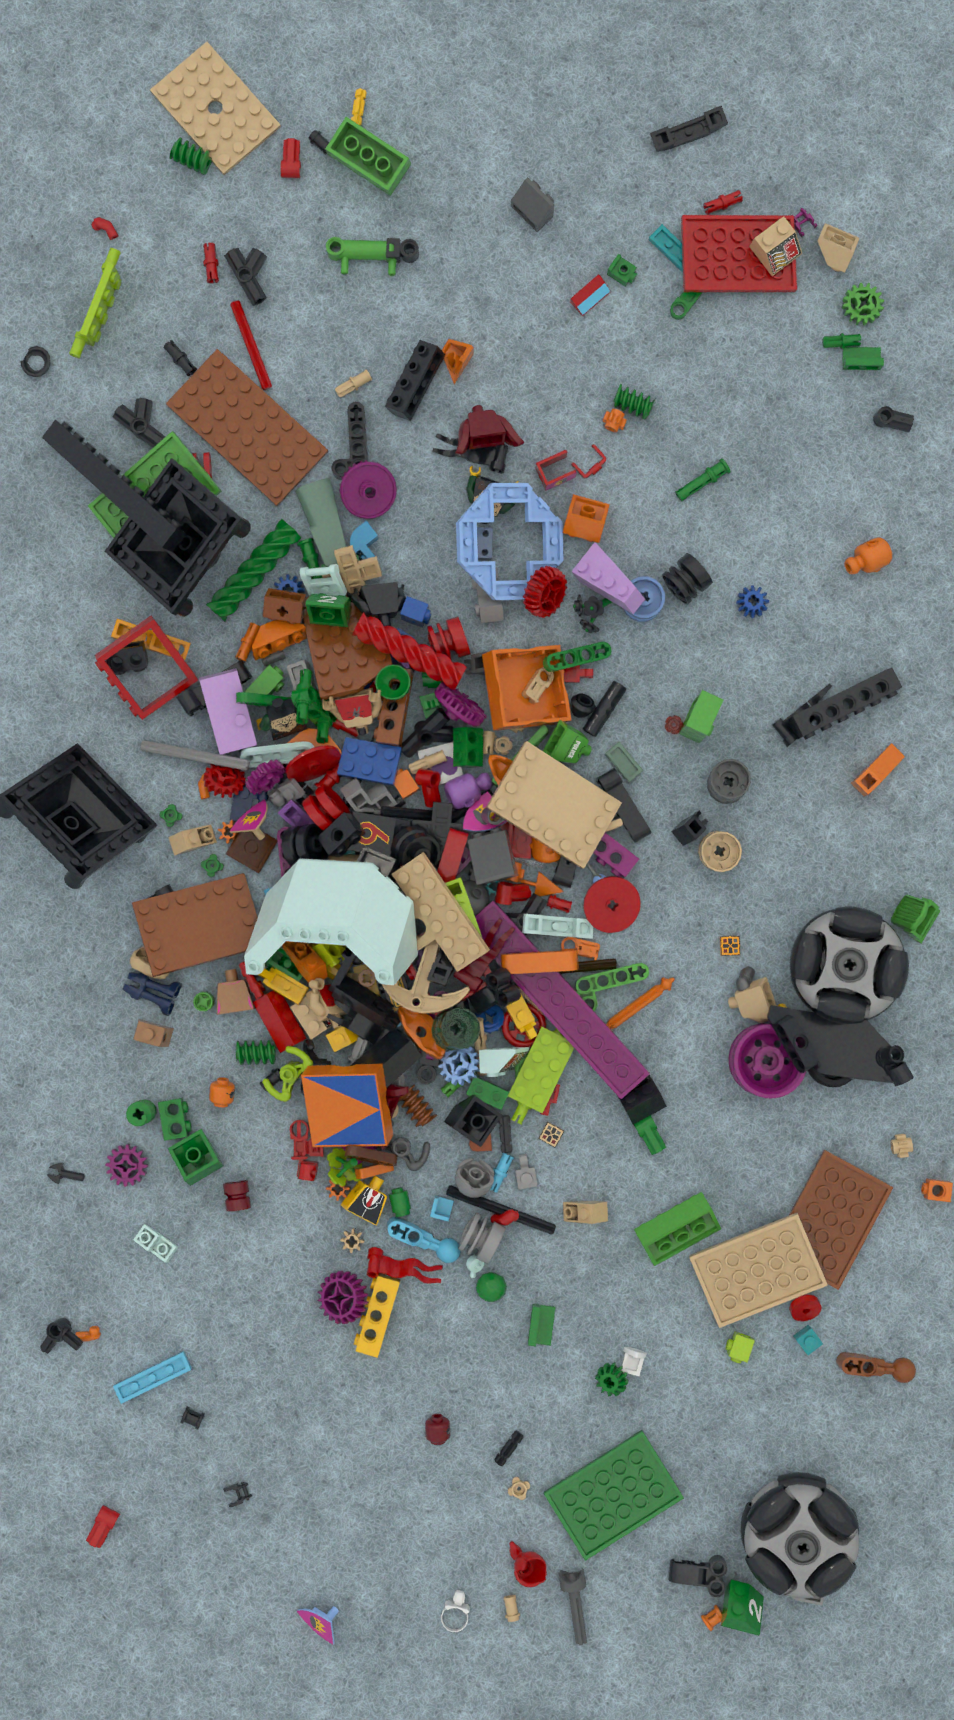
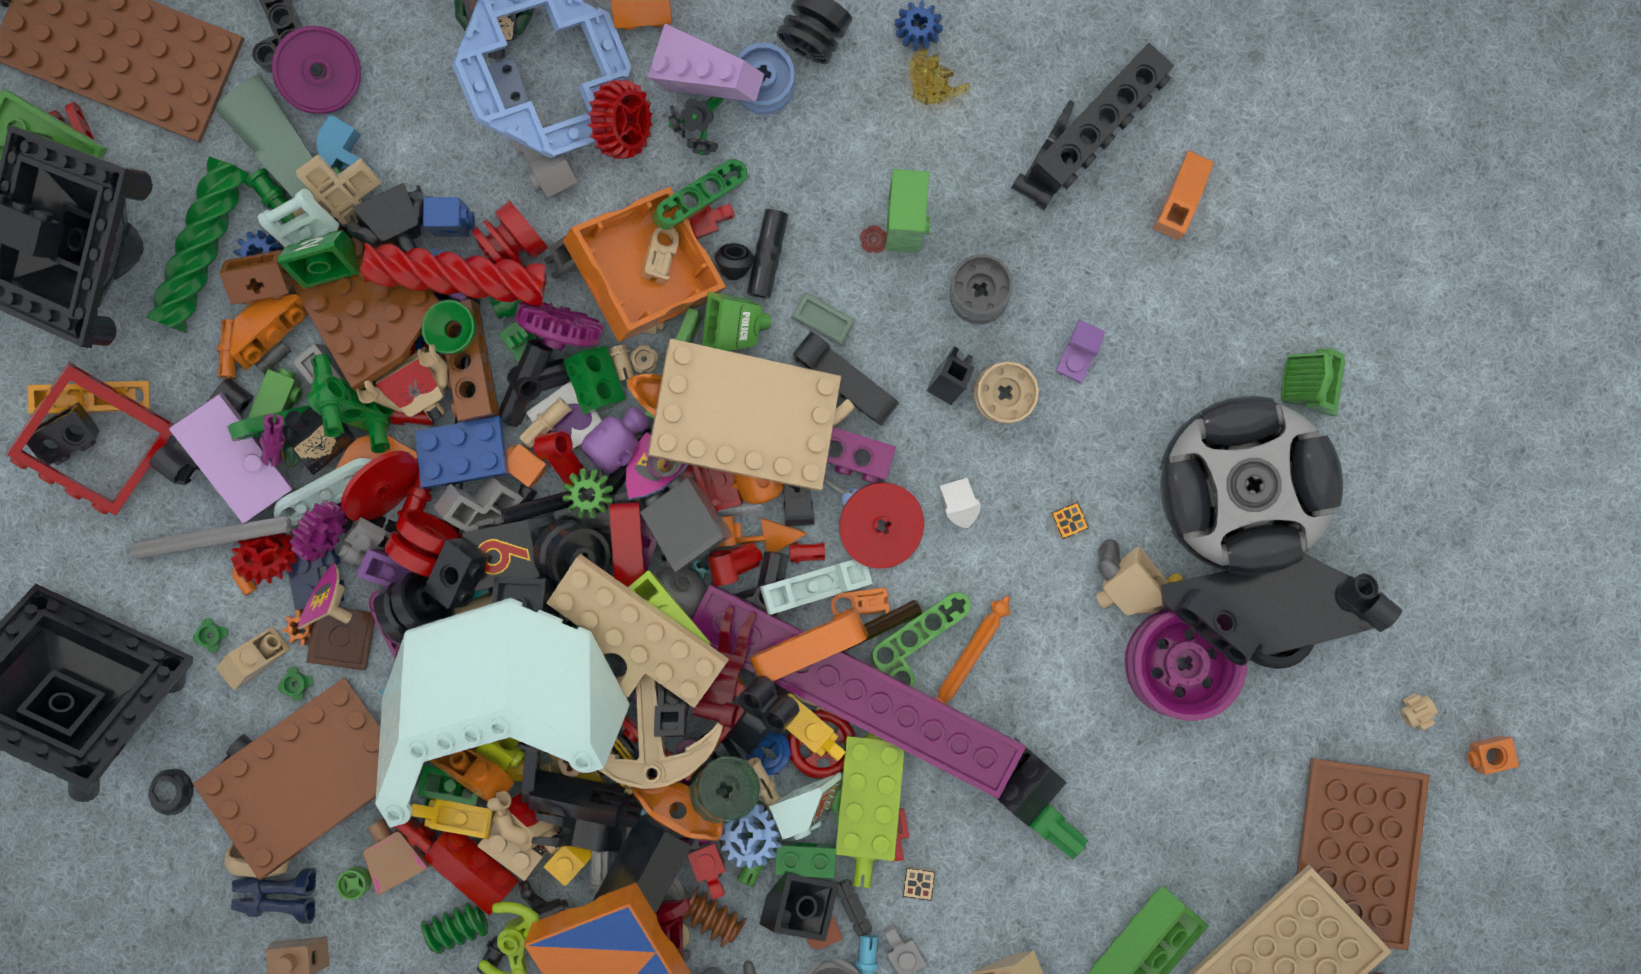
camera: 20 degrees left, 0 degrees up
(119, 906) = (183, 787): none -> black piece
(260, 711) = (272, 440): none -> magenta pin
(427, 1071) = (706, 866): none -> red plate
(437, 822) = (588, 503): none -> bright green gear
(666, 909) = (960, 503): none -> white tile
(747, 639) = (925, 85): none -> clear yellow piece
(776, 843) = (1080, 351): none -> medium lavender slope

